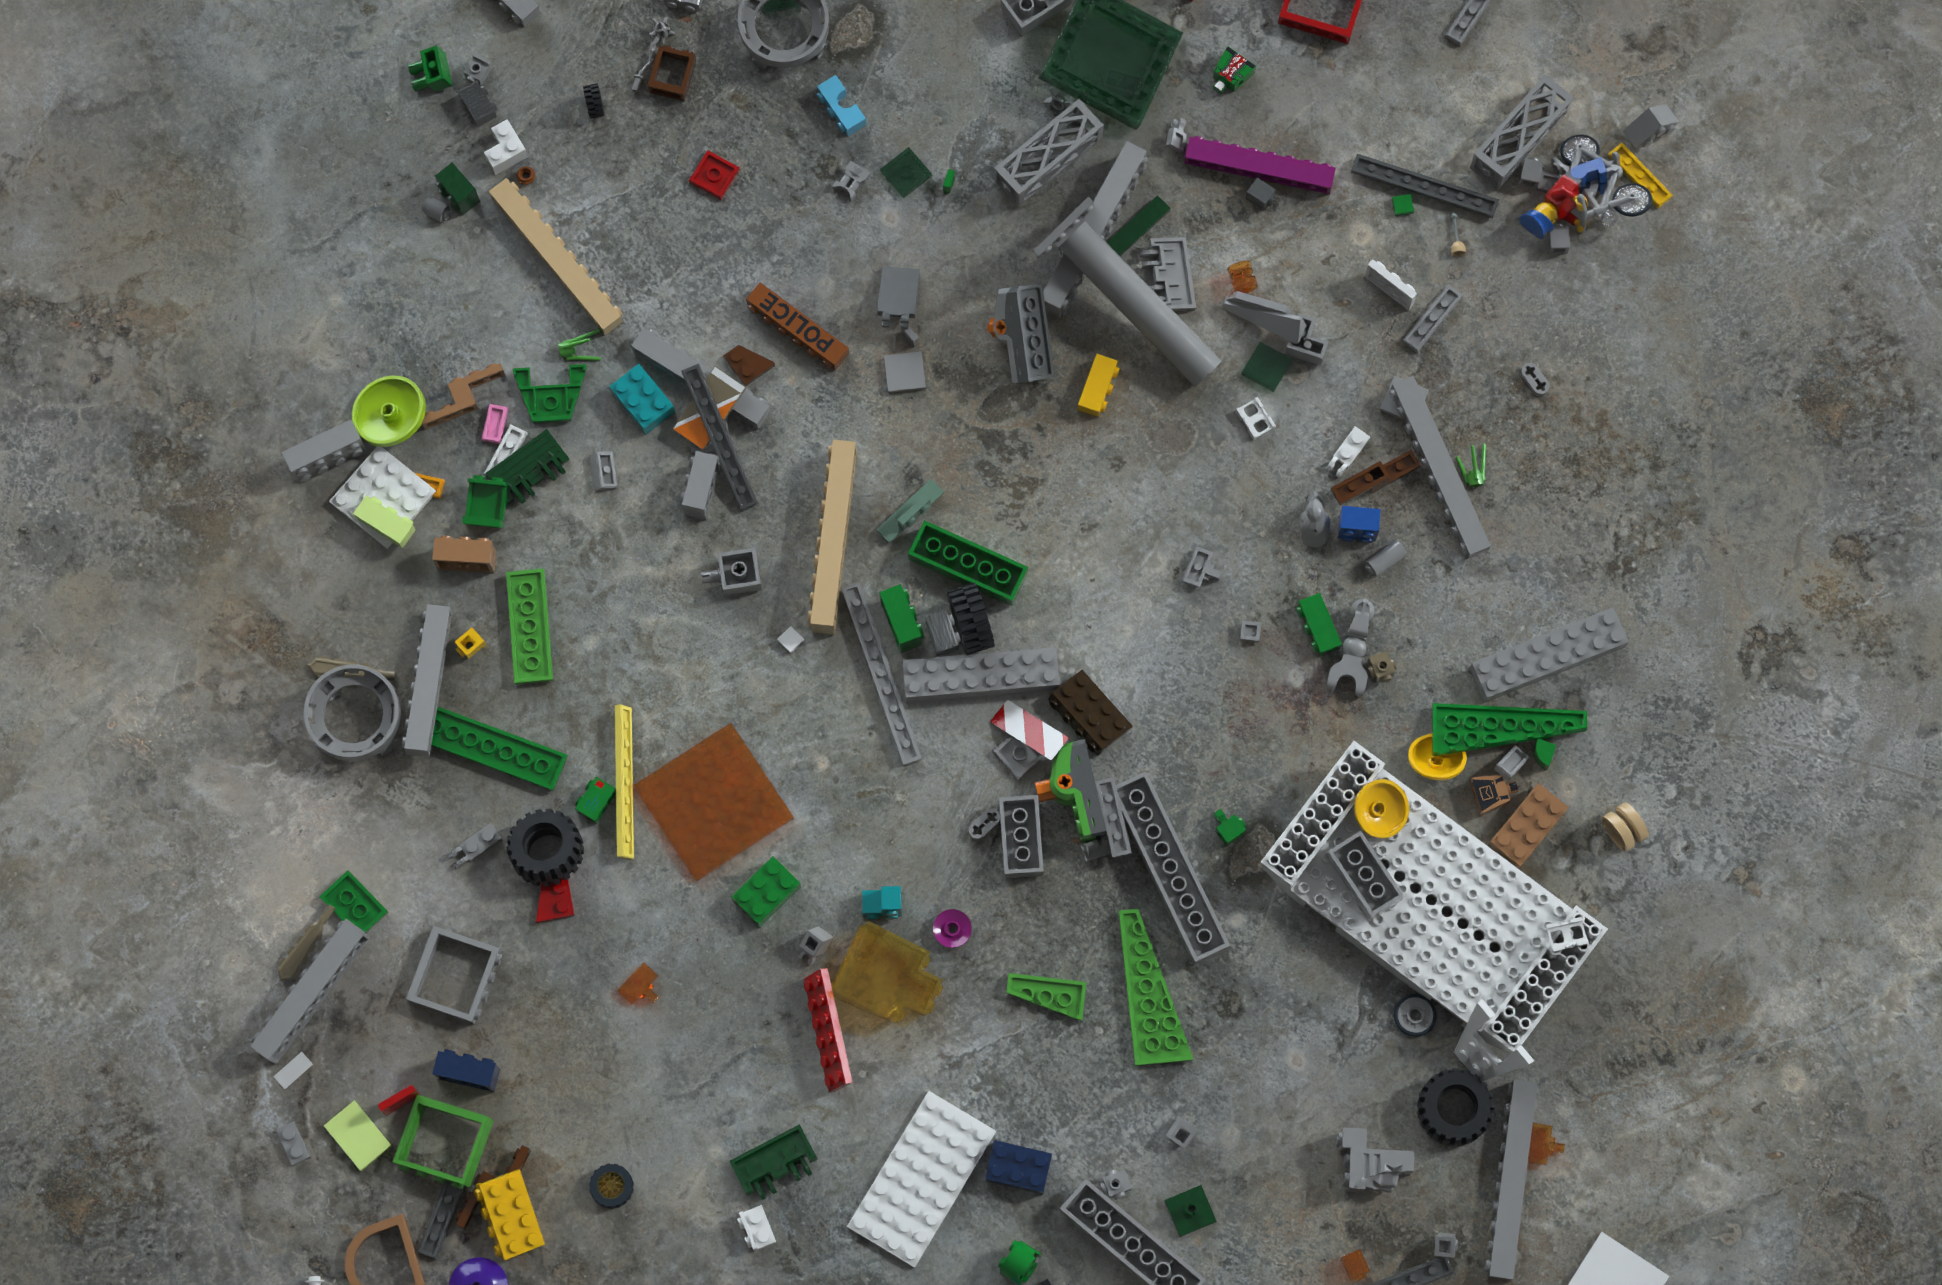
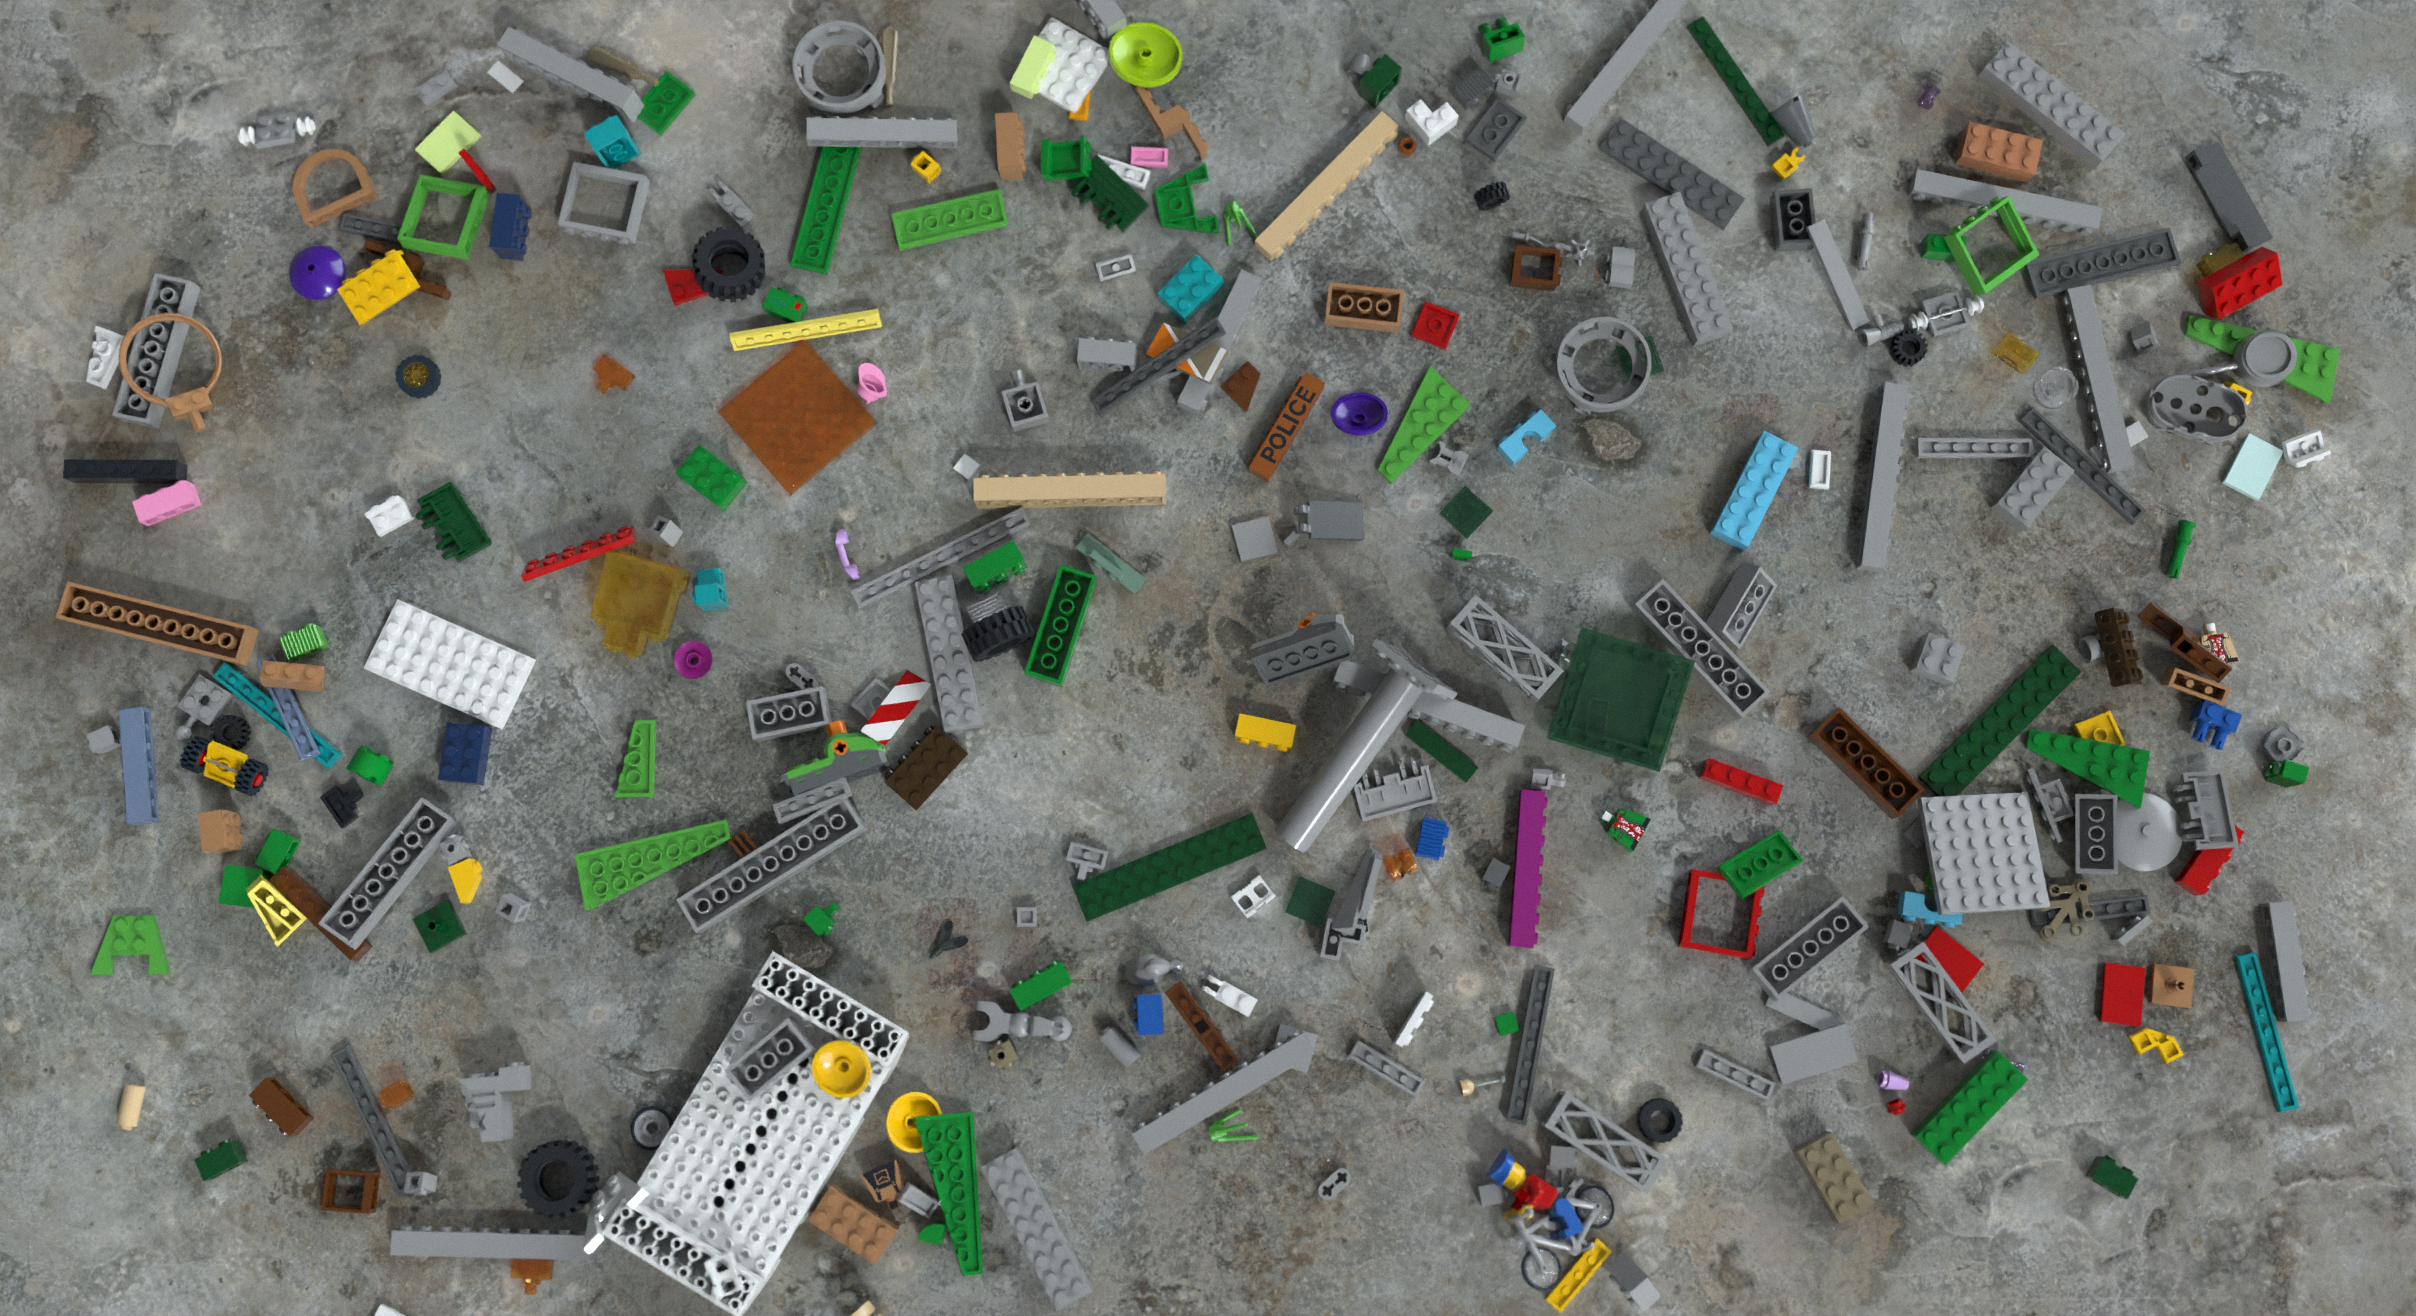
camera: 85 degrees right, 5 degrees up
(395, 952) = (612, 142): none -> teal brick
(522, 90) = (1495, 129): none -> dark grey tile
(688, 236) = (1364, 307): none -> medium nougat brick
(693, 722) = (871, 383): none -> bright pink piece
(790, 250) = (1359, 414): none -> dark purple dish
(808, 196) = (1428, 417): none -> bright green wing
(881, 763) = (842, 538): none -> lavender bar
(1142, 892) = (738, 838): none -> dark orange tile
(1146, 1177) = (466, 879): none -> yellow slope
(1218, 493) = (1169, 867): none -> dark green plate
(1220, 246) = (1431, 839): none -> blue brick
(1265, 714) = (945, 944): none -> pearl dark grey piece
(1507, 96) = (1672, 1111): none -> black tyre

